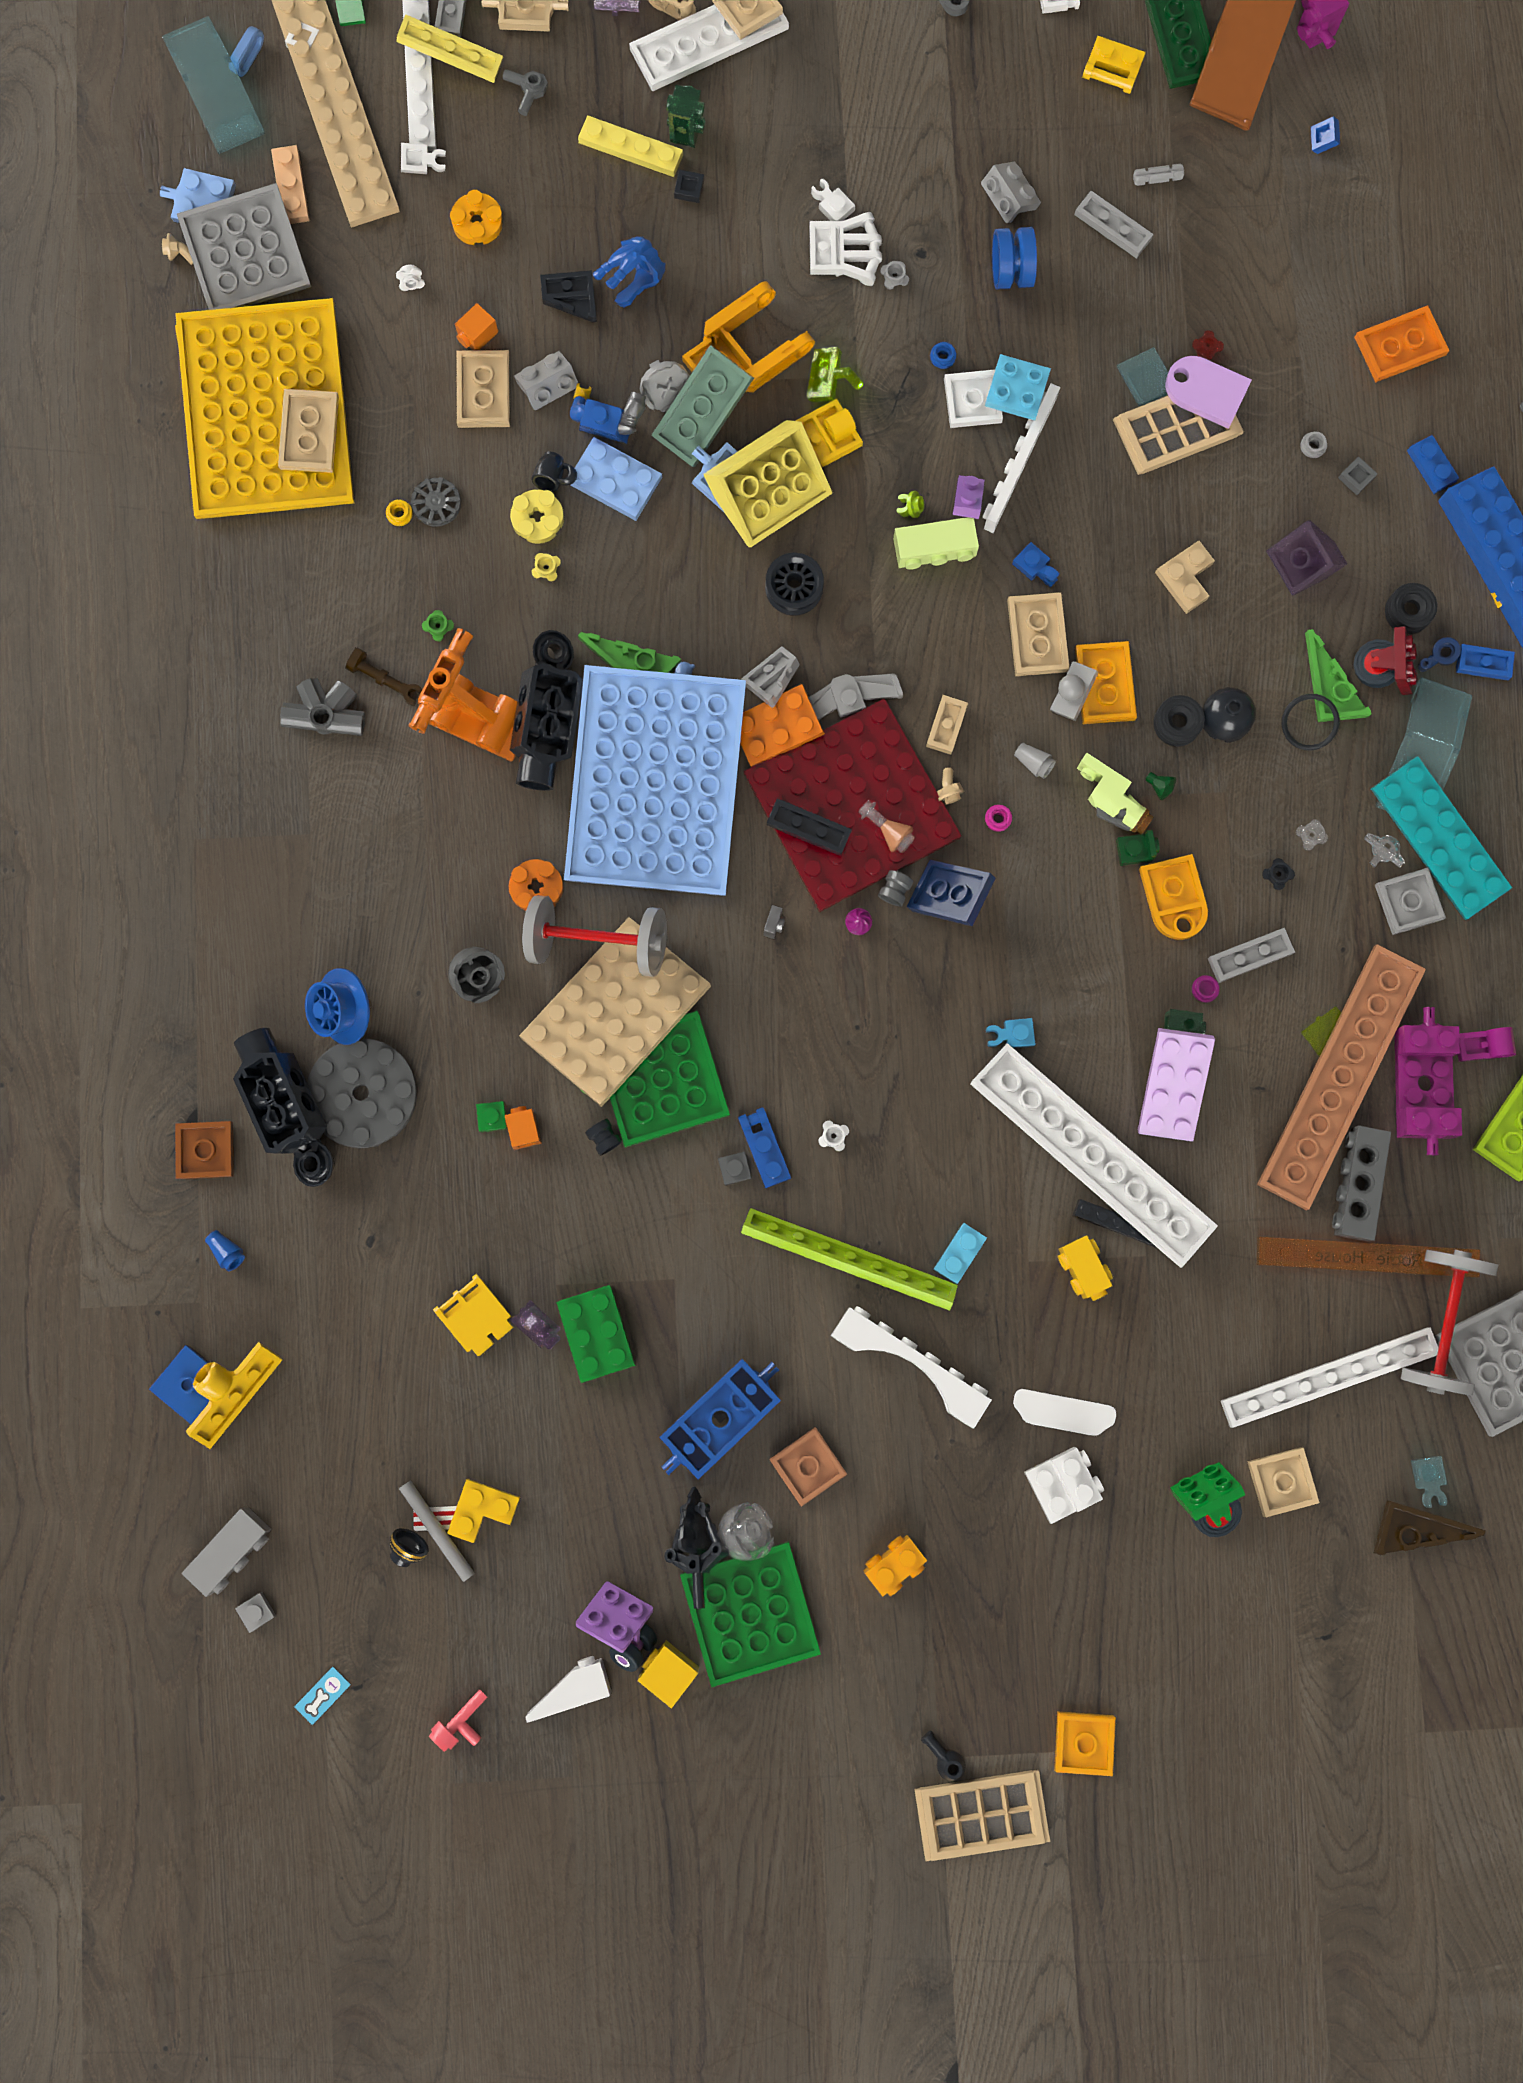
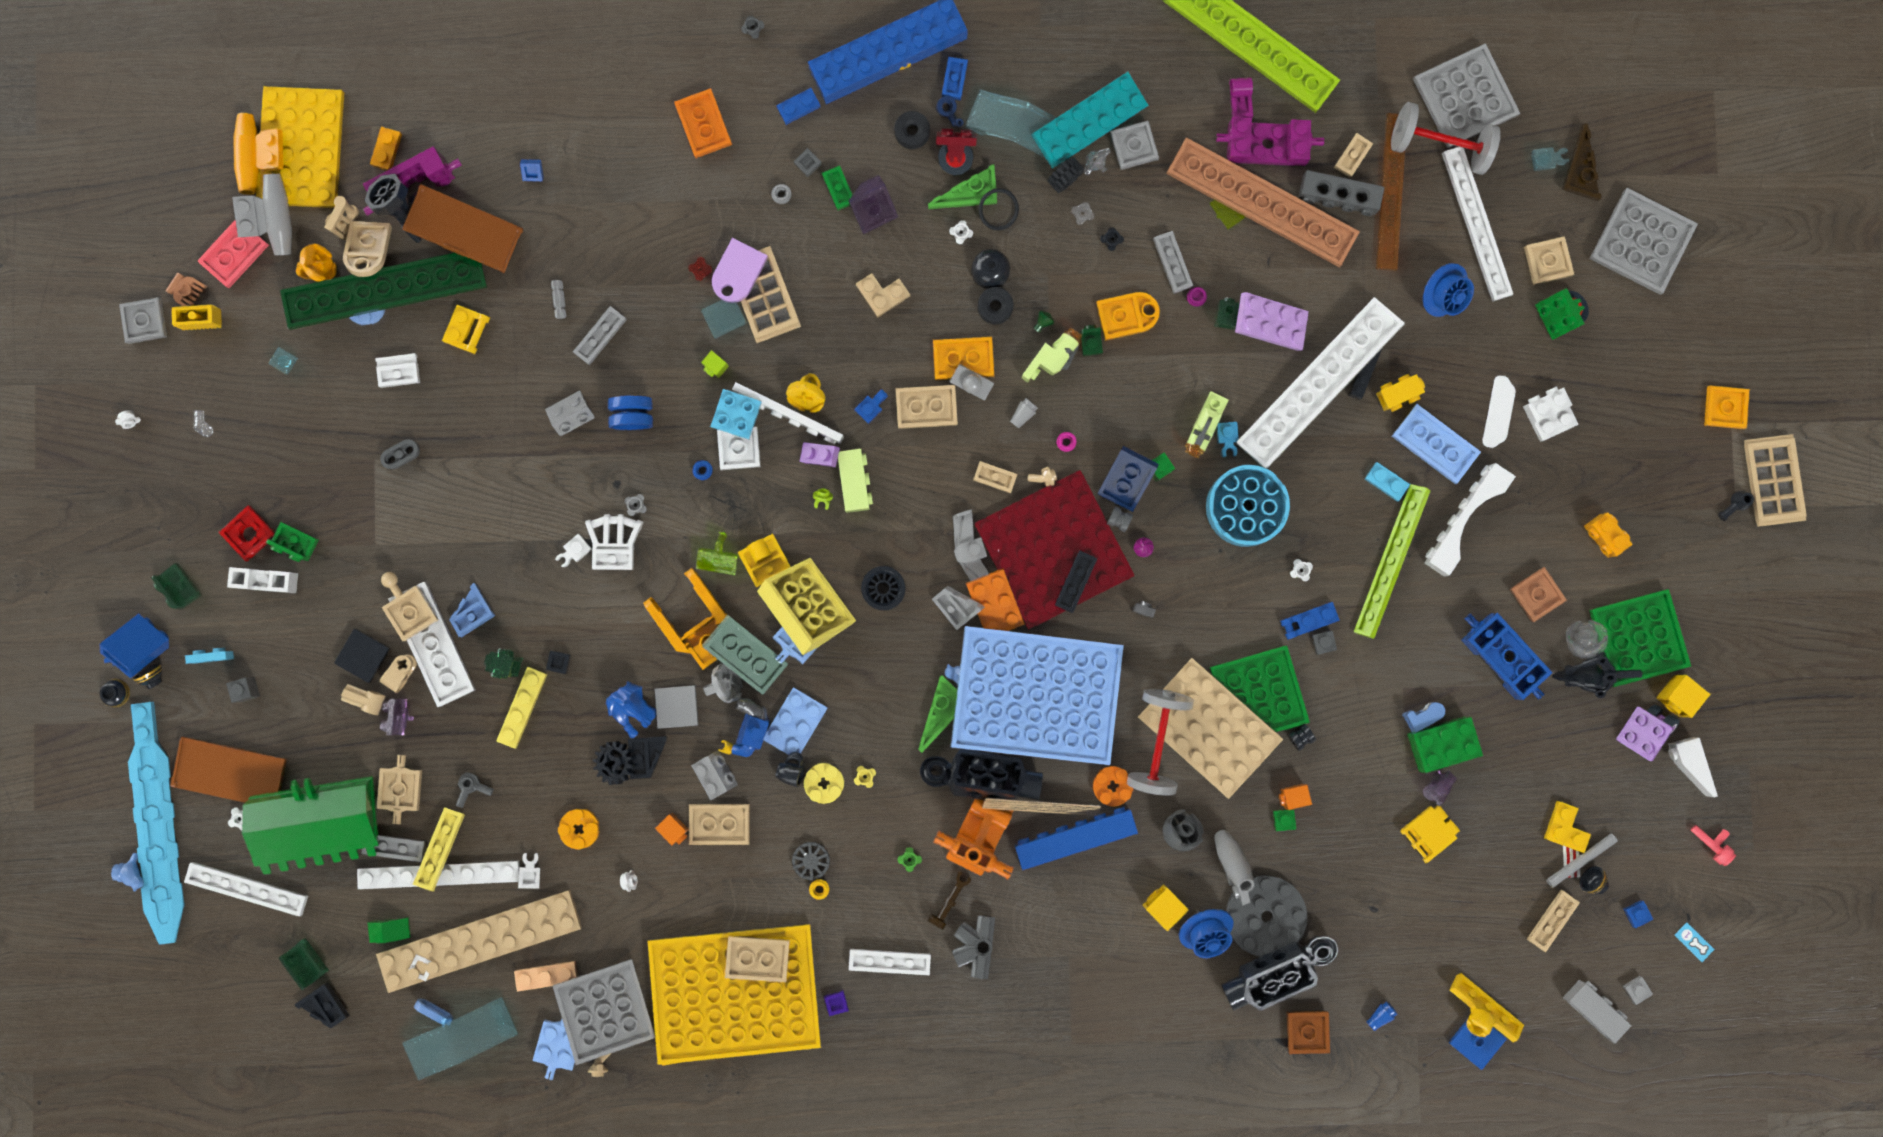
camera: 85 degrees left, 5 degrees up
(251, 538) = (836, 1003): none -> dark purple tile
(304, 602) = (889, 961): none -> white plate
(352, 1489) = (1553, 920): none -> tan plate
(361, 1613) = (1638, 914): none -> blue plate
(373, 953) = (1165, 907): none -> yellow head
(427, 1035) = (1235, 865): none -> light grey plate
(464, 836) = (1076, 838): none -> blue brick
(506, 792) = (1041, 807): none -> tan sticker
(560, 254) = (611, 772): none -> black gear
(632, 1305) = (1431, 713): none -> medium blue leg
(634, 332) = (676, 706): none -> light grey tile
(750, 81) = (471, 612): none -> medium blue wing
(896, 834) = (1083, 516): piece -> none
(912, 1084) = (1232, 520): none -> medium azure brick
(968, 940) = (1164, 468): none -> green brick
(1015, 1320) = (1436, 444): none -> light blue plate
(1029, 1001) = (1205, 424): none -> yellowish green plate
(1046, 475) = (806, 395): none -> yellow tile
(1082, 365) = (714, 365): none -> lime plate
(1232, 1328) = (1448, 291): none -> blue piece
(1276, 668) = (961, 226): none -> white plate
(1319, 1618) = (1643, 241): none -> light grey plate
(1329, 513) = (837, 187): none -> green plate
(1363, 806) = (1066, 174): none -> black tyre
(1416, 1201) = (1353, 155): none -> tan plate

